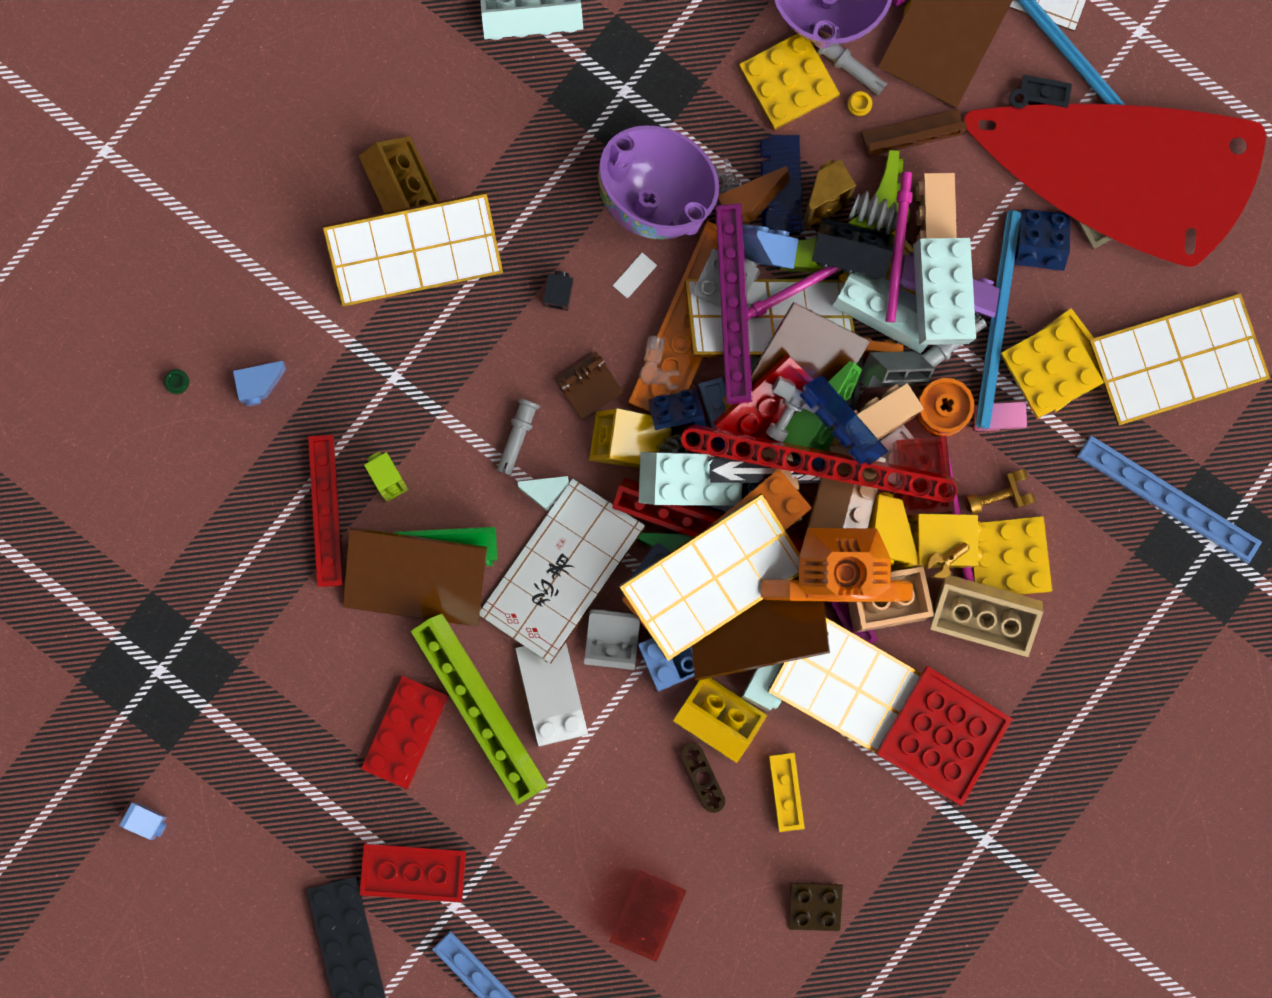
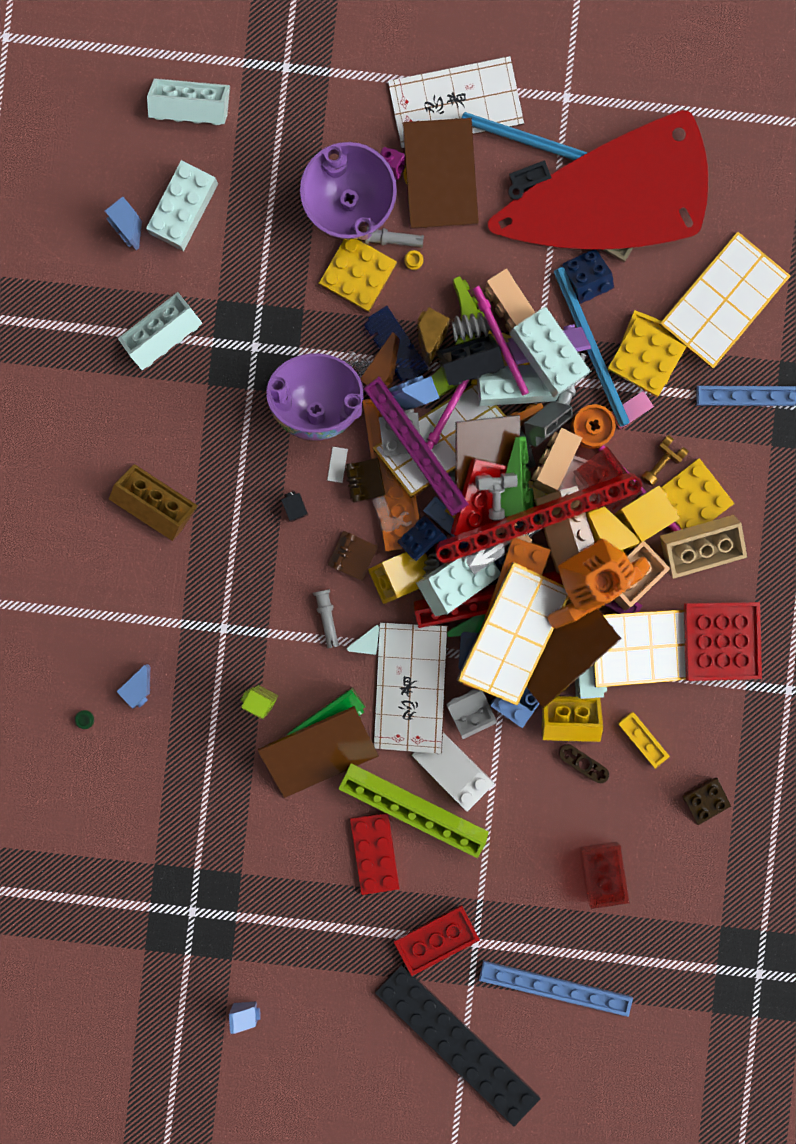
camera: 20 degrees left, 5 degrees up
(325, 511) = (234, 743): red plate -> none
(413, 249) = (183, 538): white piece -> none
(654, 309) = (365, 480): none -> dark brown hinge
(848, 425) = (543, 481): clear blue windscreen -> none
(913, 132) = (460, 257): reddish brown fence -> none
(946, 560) = (657, 529): pearl gold bar -> none

